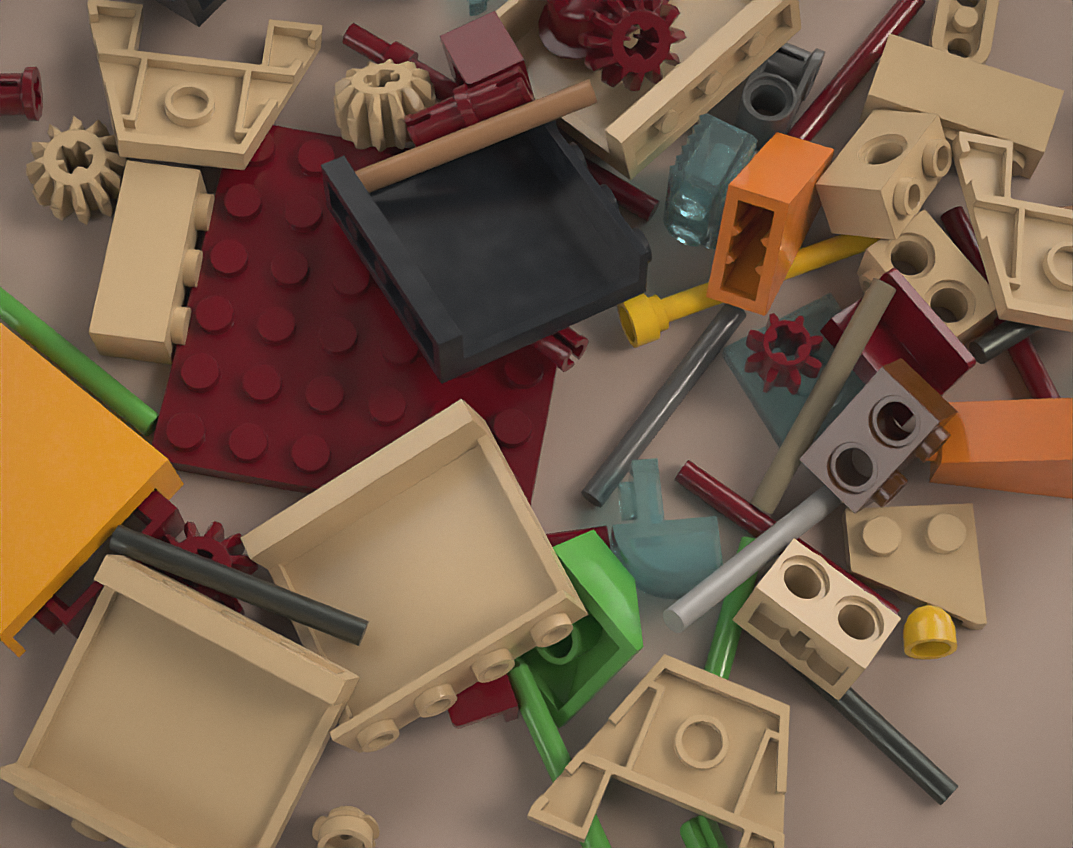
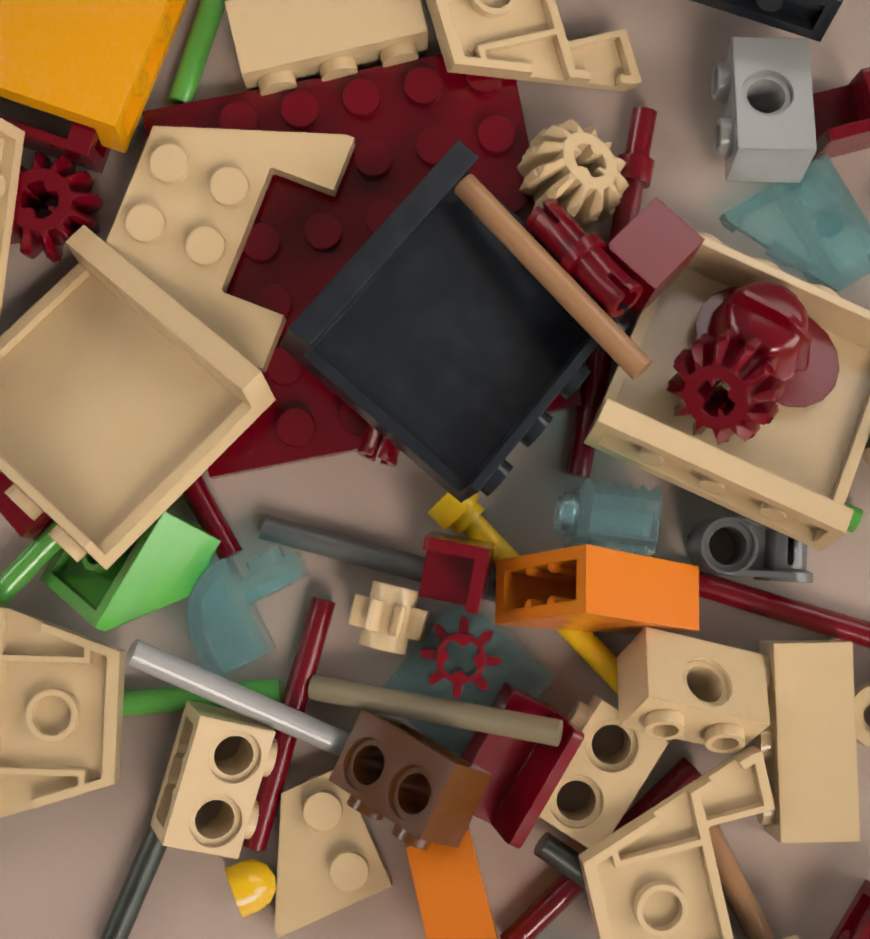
camera: 70 degrees right, 15 degrees up
(238, 585) = (31, 241): pearl dark grey bar -> none
(263, 427) = (195, 211): none -> tan wing
(704, 326) = (456, 570): none -> dark red panel
(722, 409) = (388, 617): none -> tan gear

